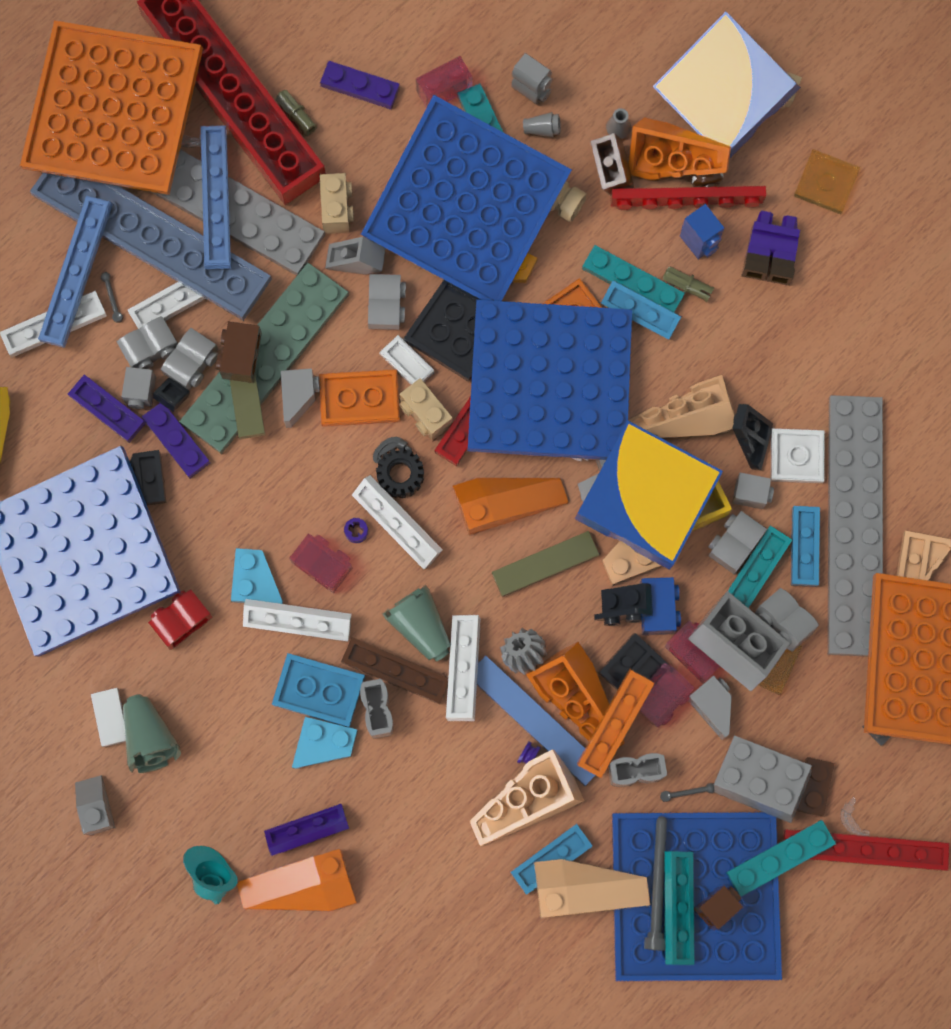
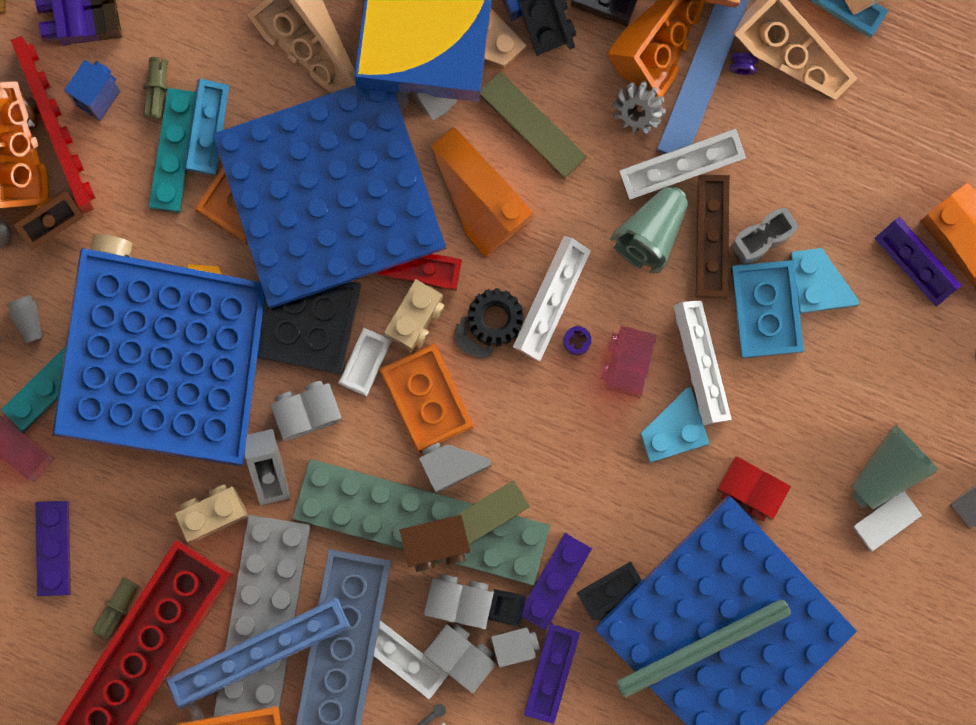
camera: 115 degrees left, 5 degrees up
(70, 523) = (703, 648): none -> sand green axle

